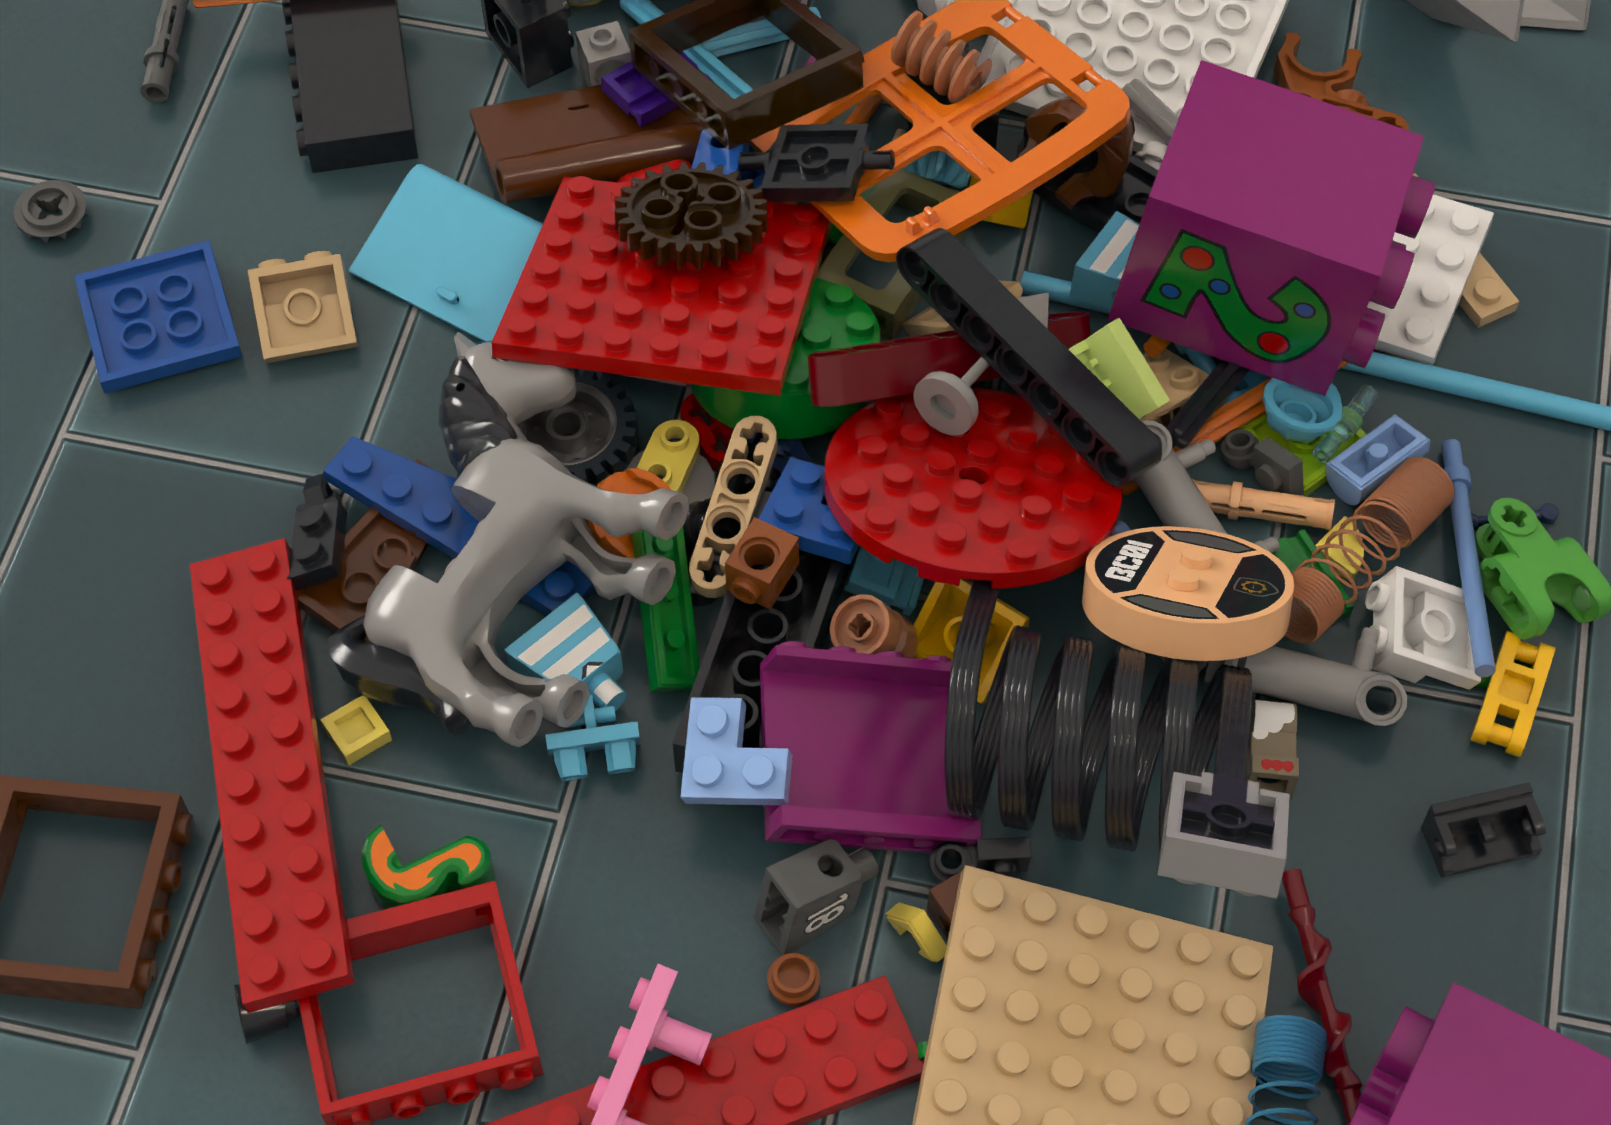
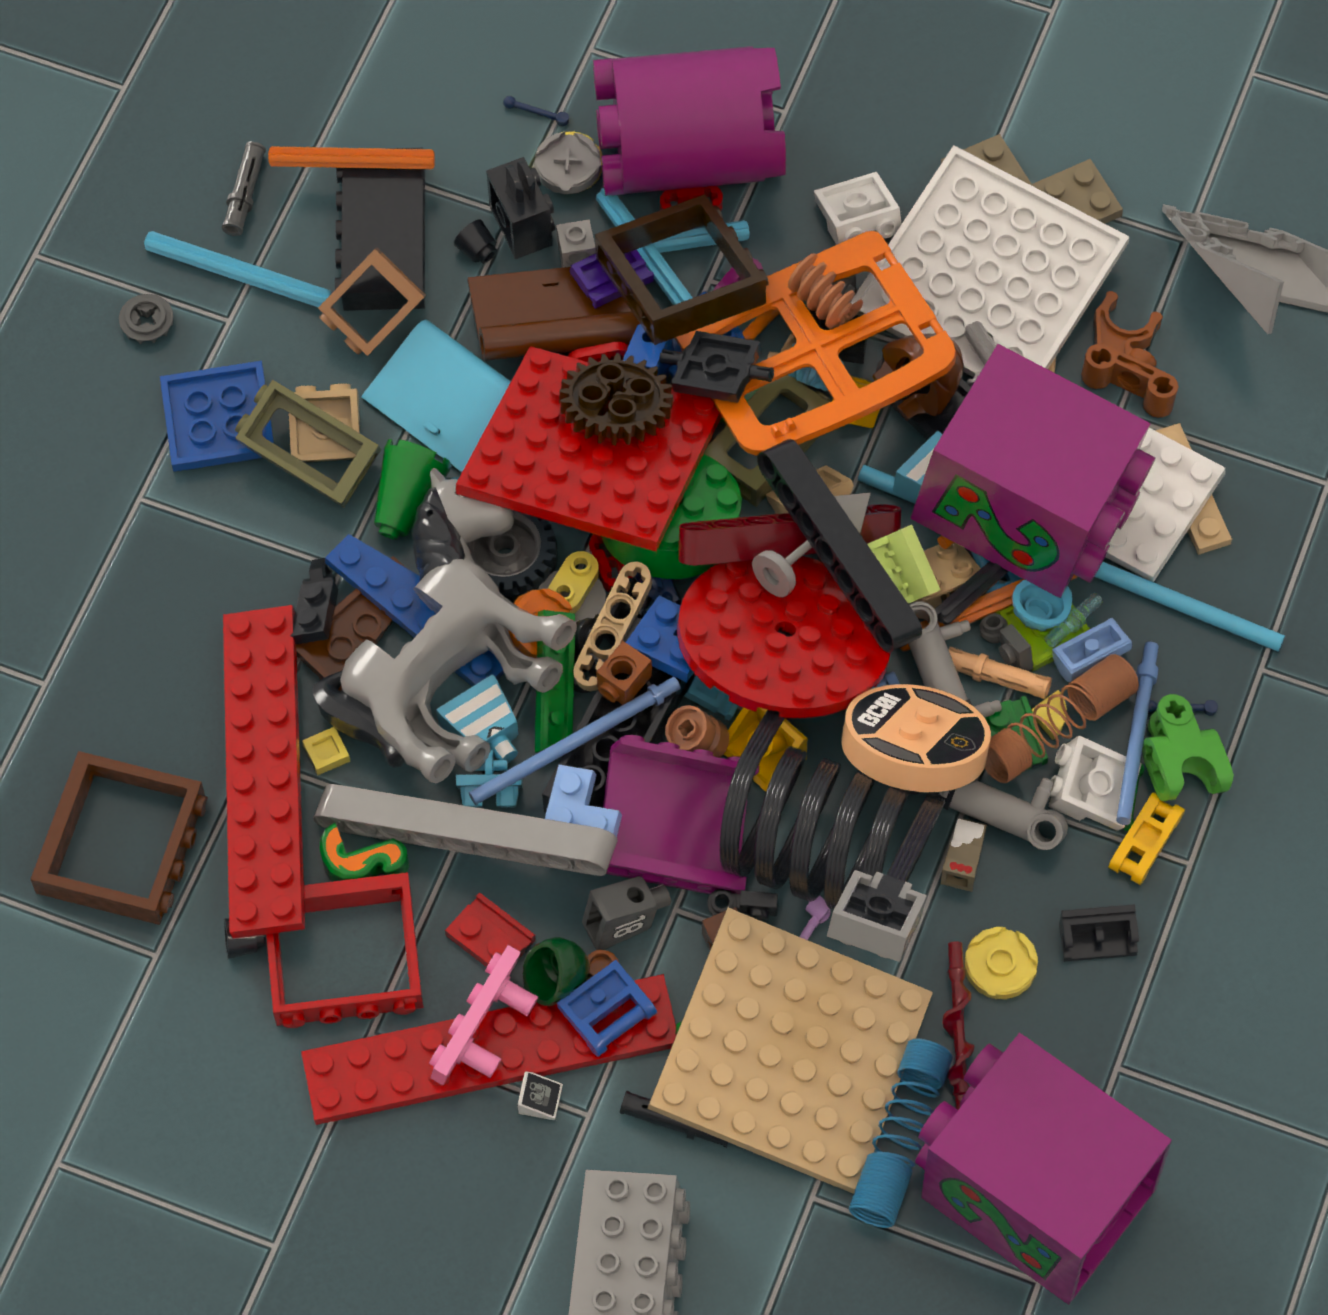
camera: 10 degrees right, 5 degrees up
(168, 139) = (235, 269): none -> medium azure axle
(237, 274) = (279, 397): none -> olive piece
(374, 110) = (395, 277): none -> medium nougat window
(417, 364) = (403, 485): none -> green cone
(474, 69) = (476, 242): none -> black hat
(576, 806) = (466, 829): none -> light grey beam
(620, 948) = (488, 929): none -> red plate
(730, 992) = (555, 970): none -> dark green piece
(802, 1023) = (598, 999): none -> blue plate
(807, 588) = (654, 695): none -> medium blue bar
(916, 921) = (689, 940): light yellow tile -> none
(1089, 856) = (819, 913): none -> lavender hand
(1357, 891) = (1001, 963): none -> light yellow tile

